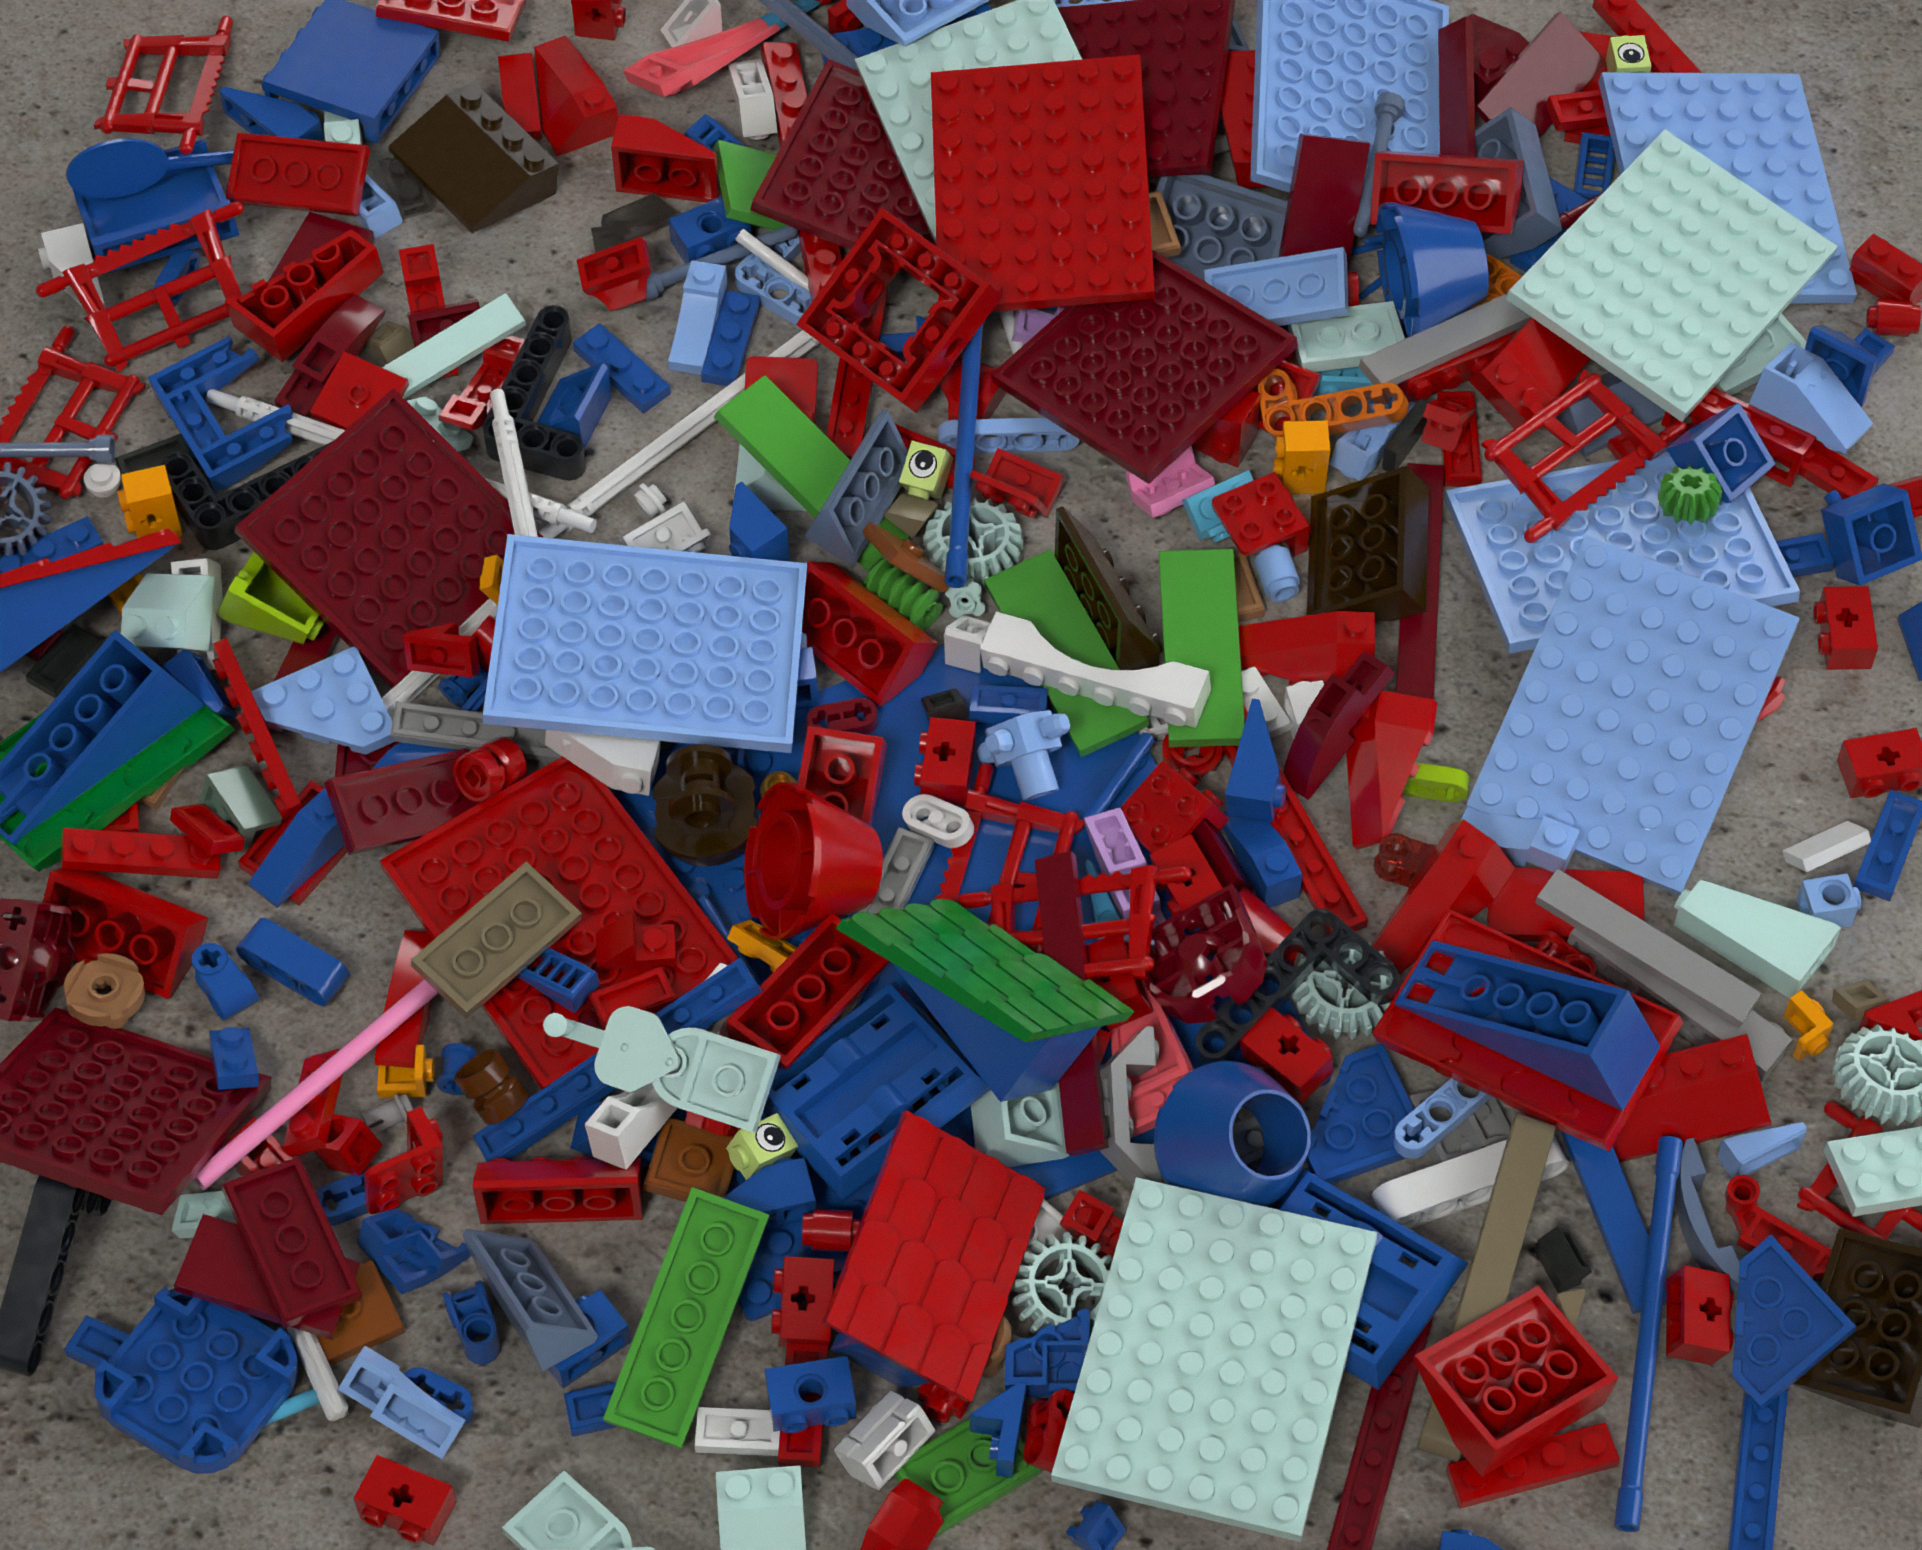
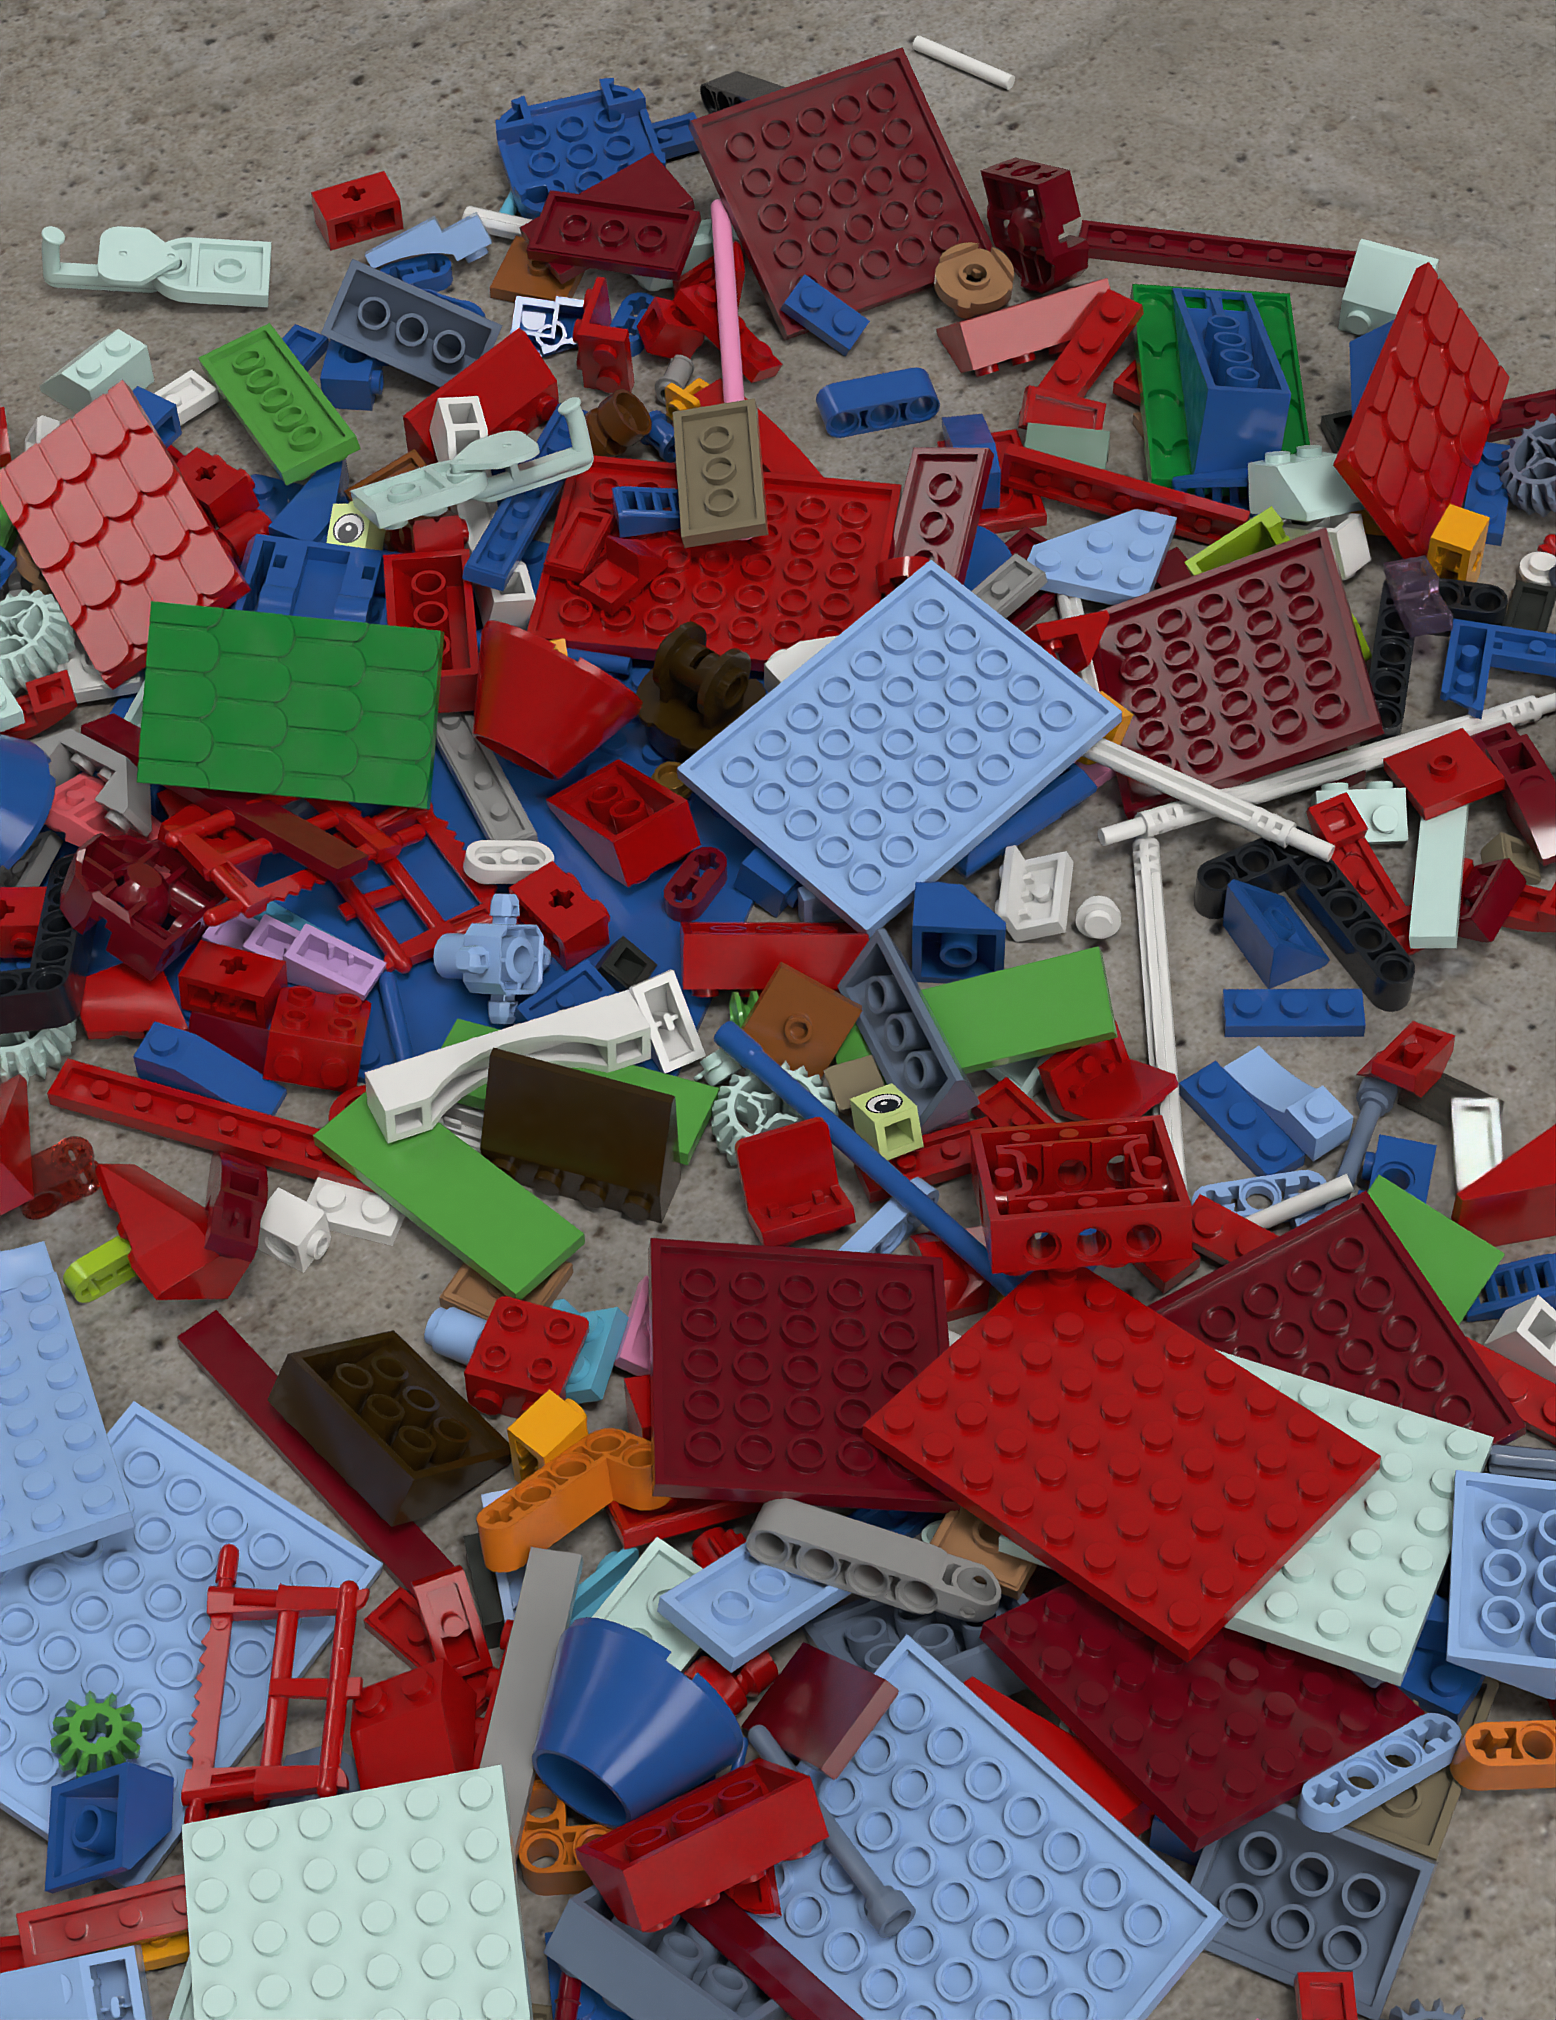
camera: 135 degrees right, 5 degrees down
(219, 493) = (1417, 596): none -> clear purple slope
(222, 981) = (906, 348): blue piece -> none
(1214, 248) = (871, 1561): none -> light grey piece
(1255, 778) = (270, 1111): blue slope -> none
(1307, 645) = (354, 1293): red wedge -> none

